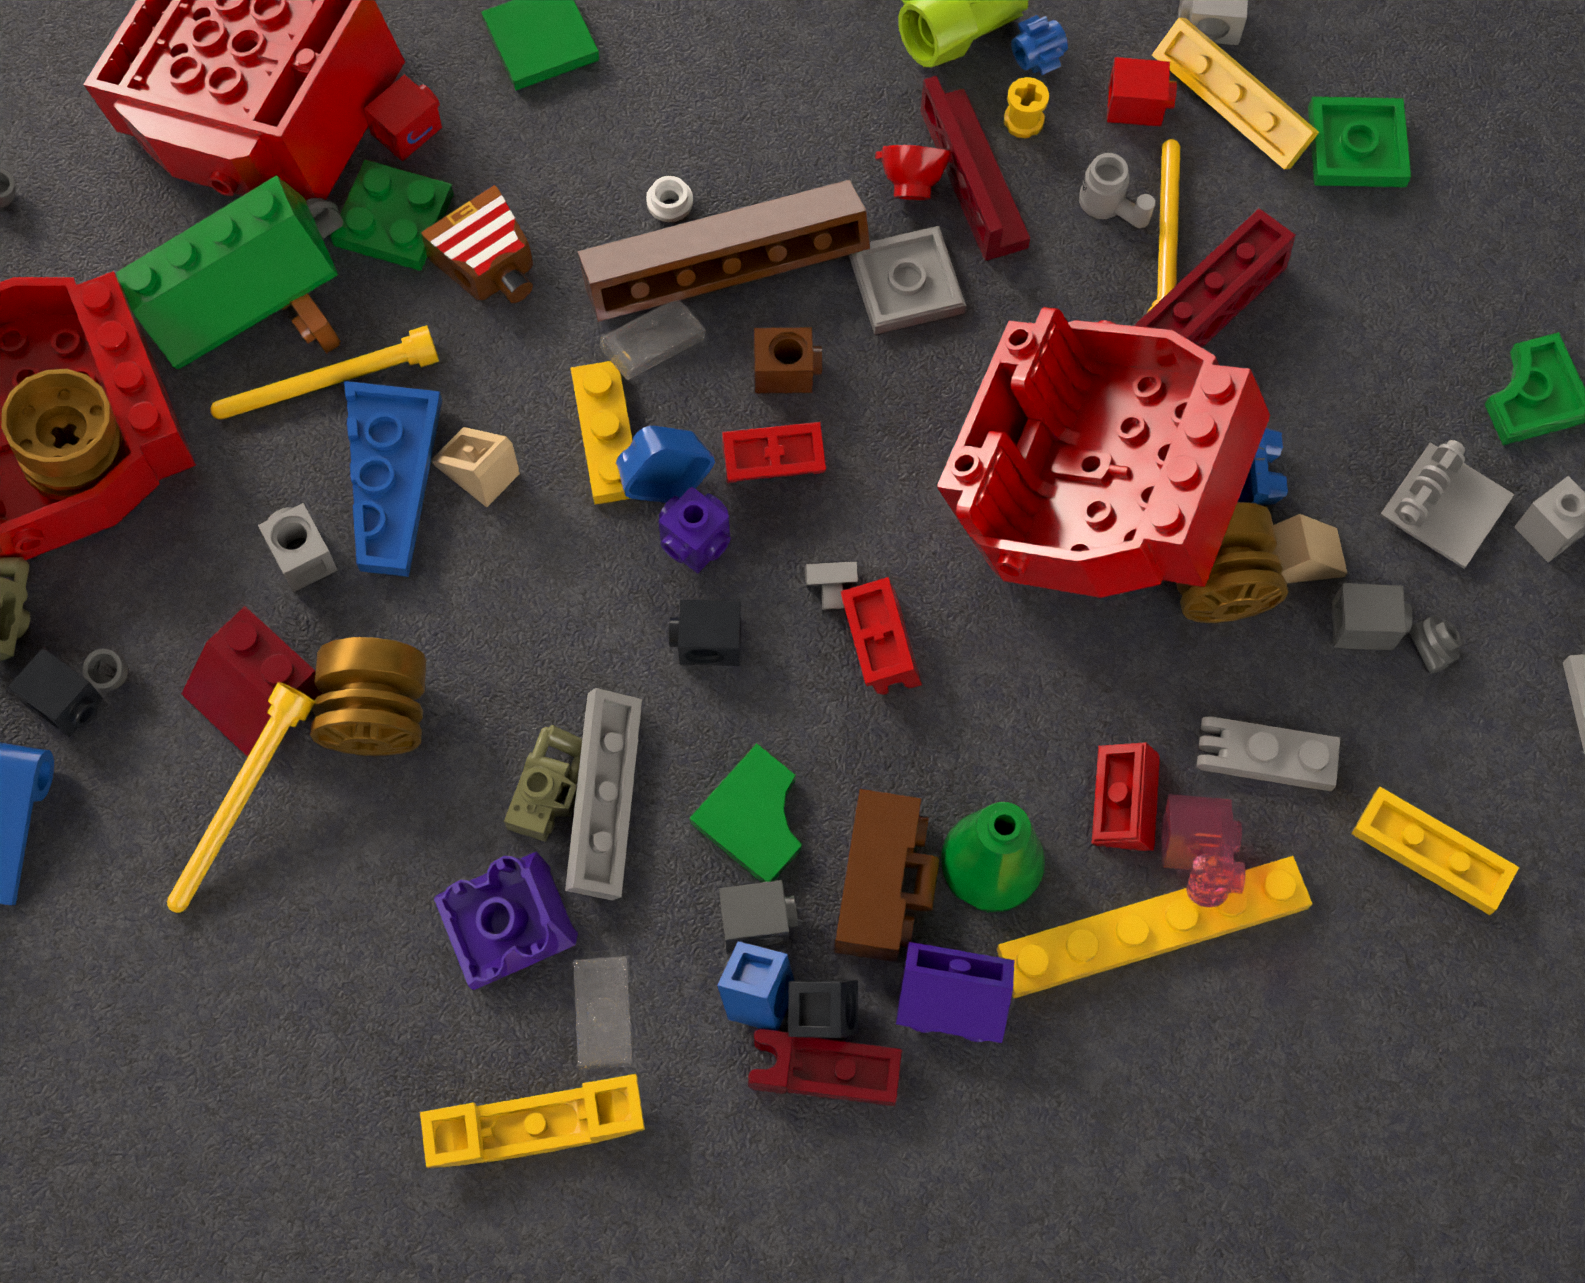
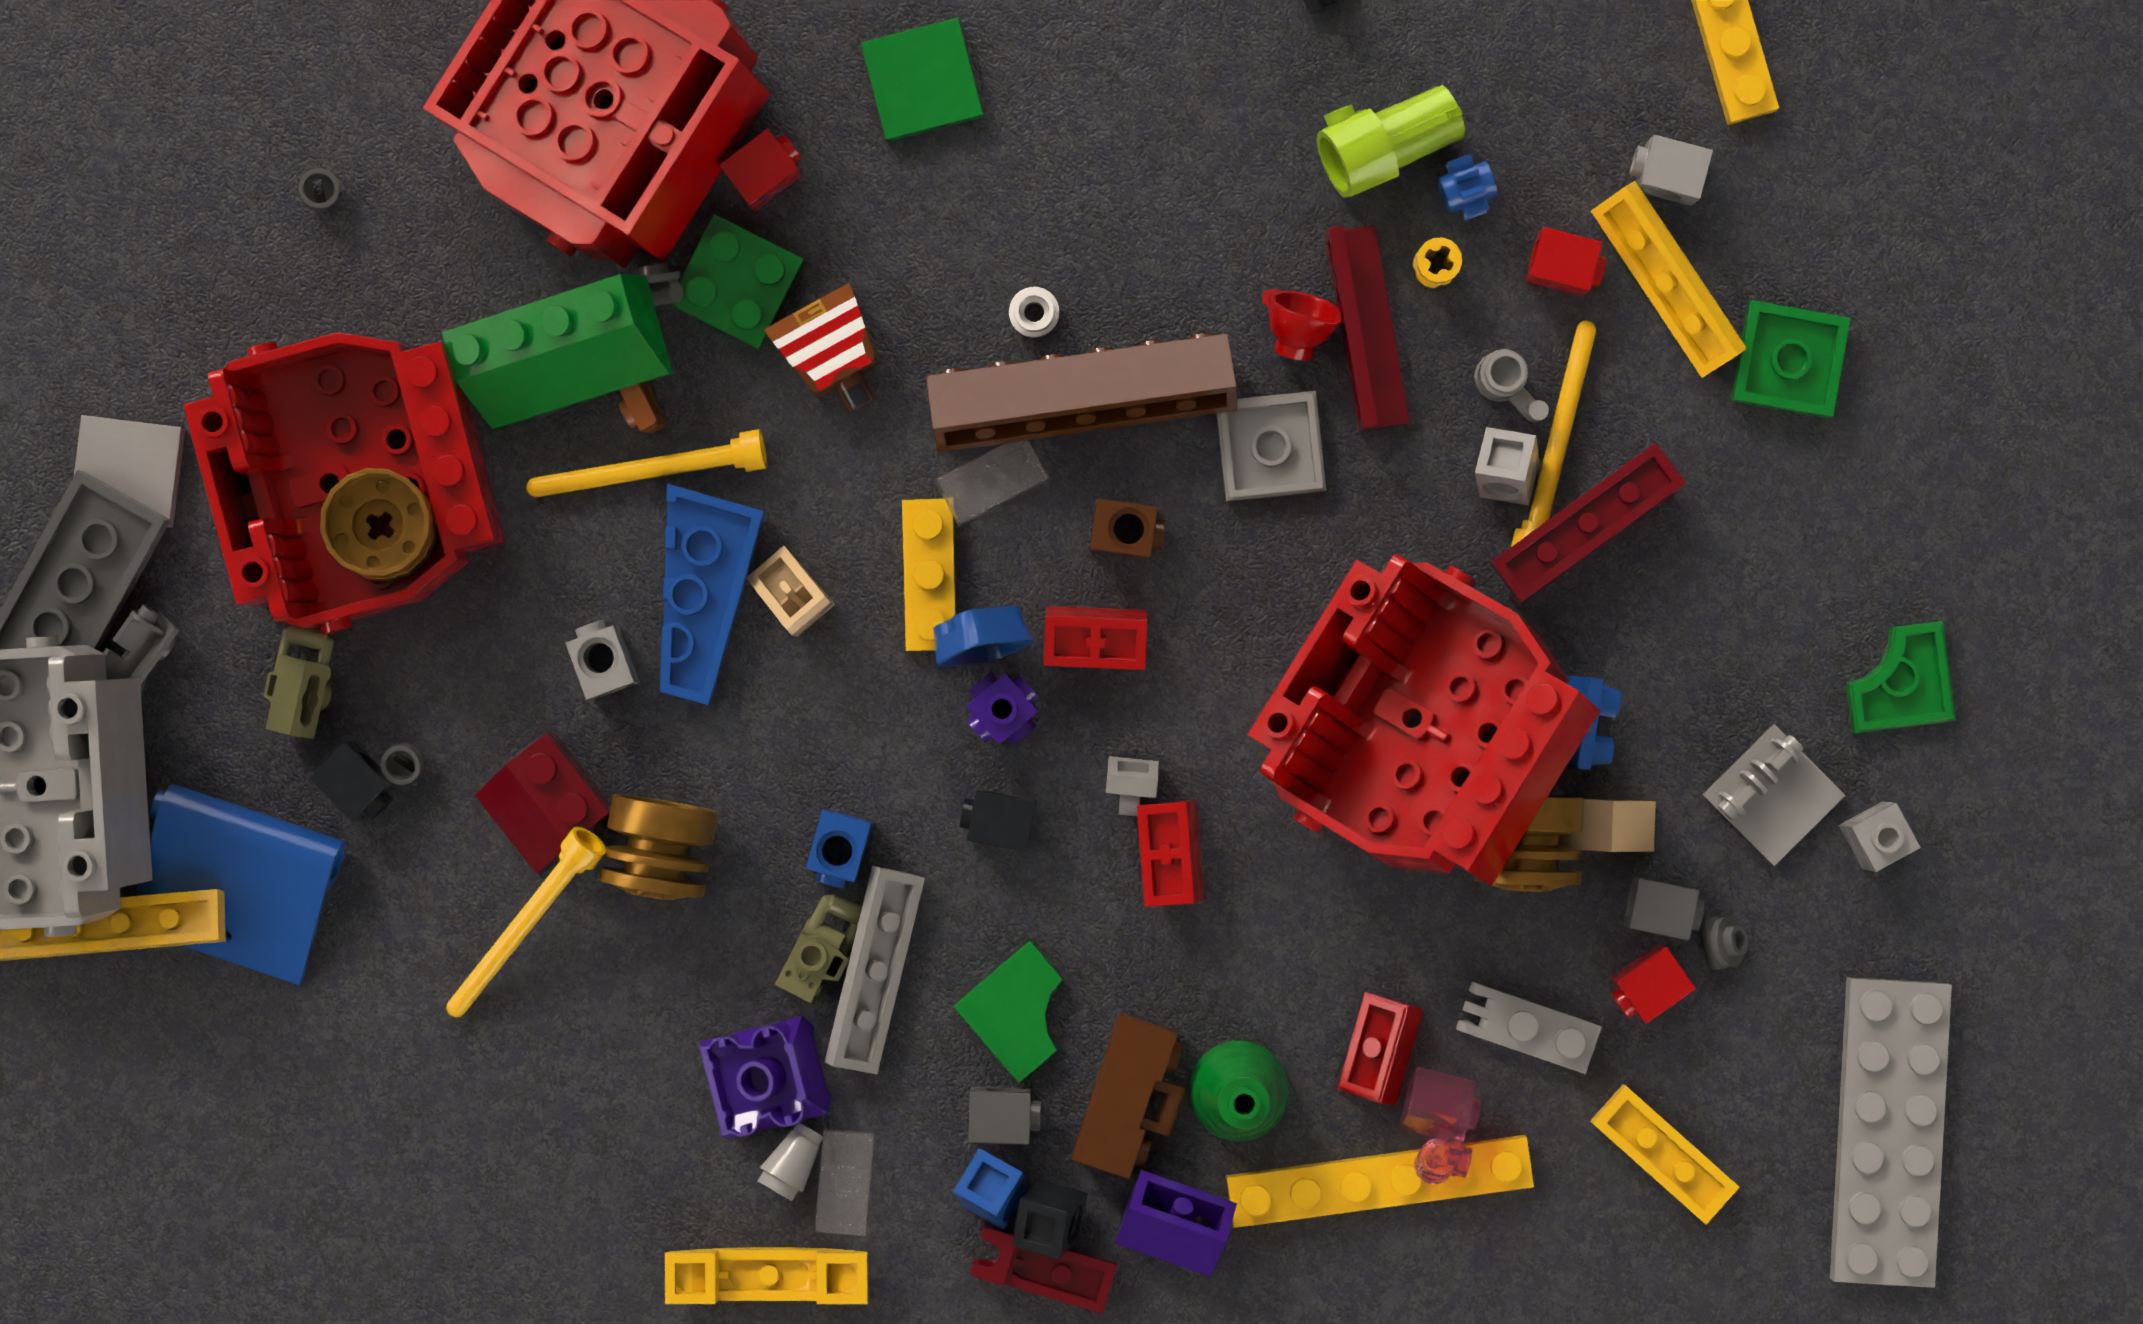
camera: 15 degrees right, 20 degrees up
(543, 1002) = (791, 1162): none -> light grey cone
(549, 661) = (855, 831): none -> blue brick
(1128, 252) = (1507, 466): none -> light grey brick
(1378, 688) = (1650, 985): none -> red brick

